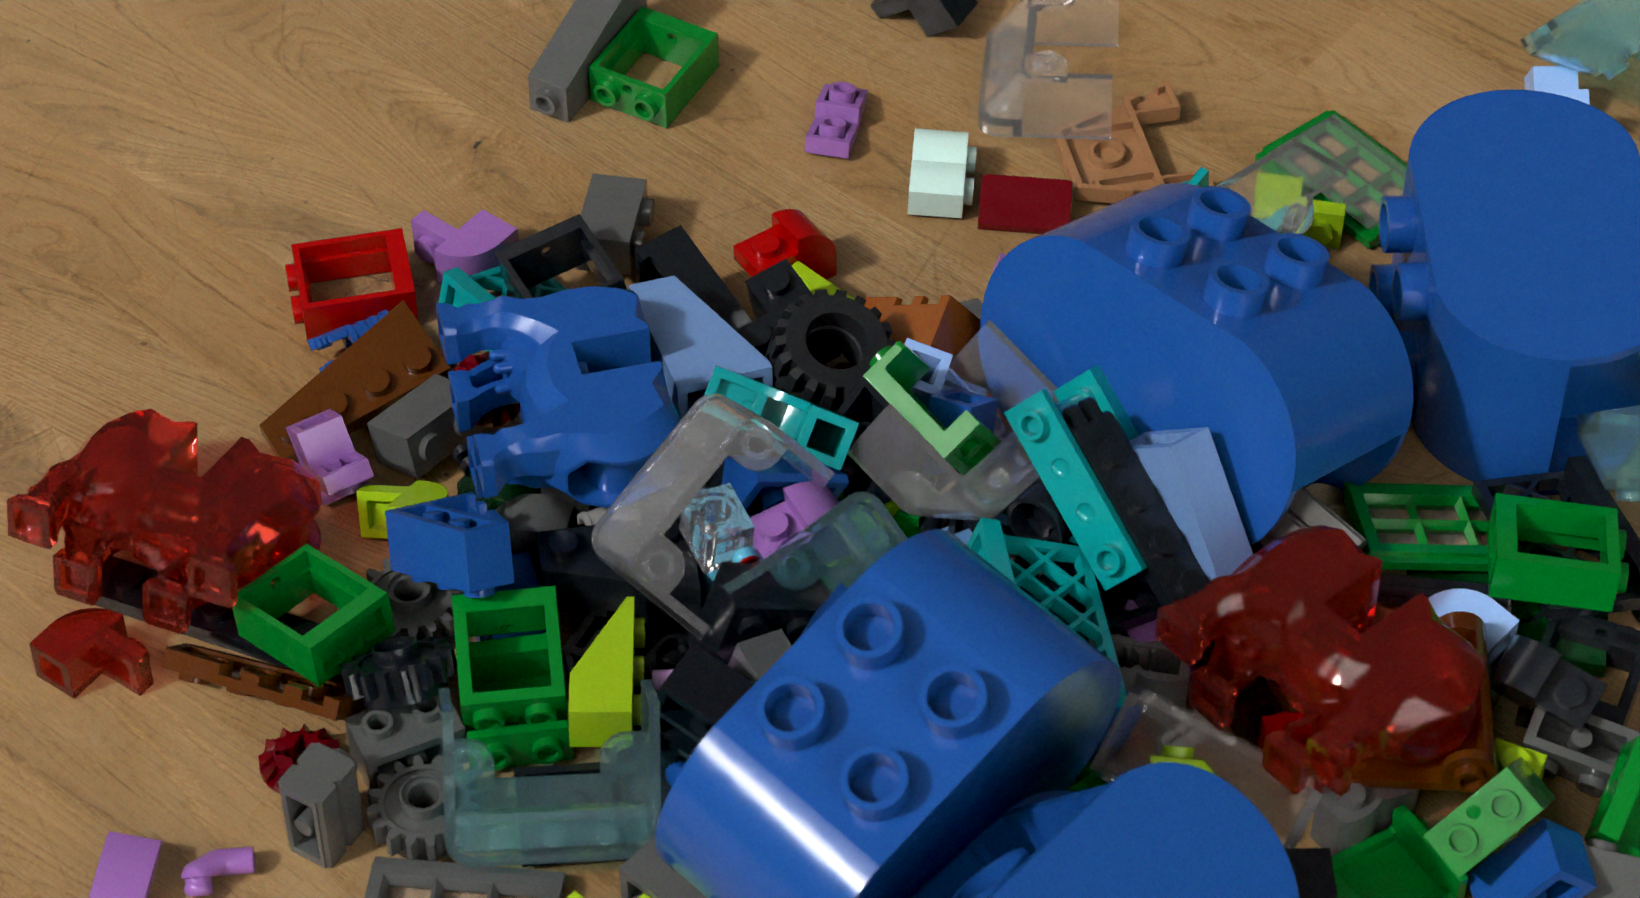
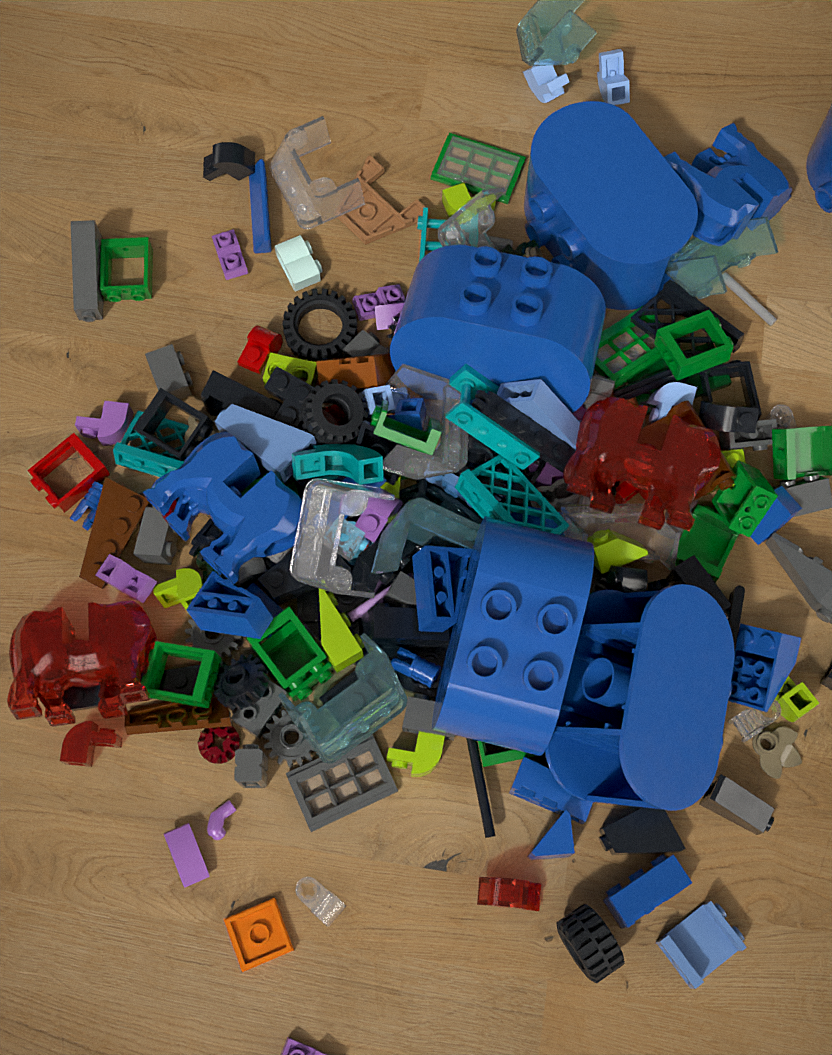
camera: 30 degrees left, 25 degrees up
(917, 235) = (319, 301): none -> black tyre
(935, 82) = (260, 209): none -> blue slope
(1024, 203) = (346, 260): dark red slope -> none

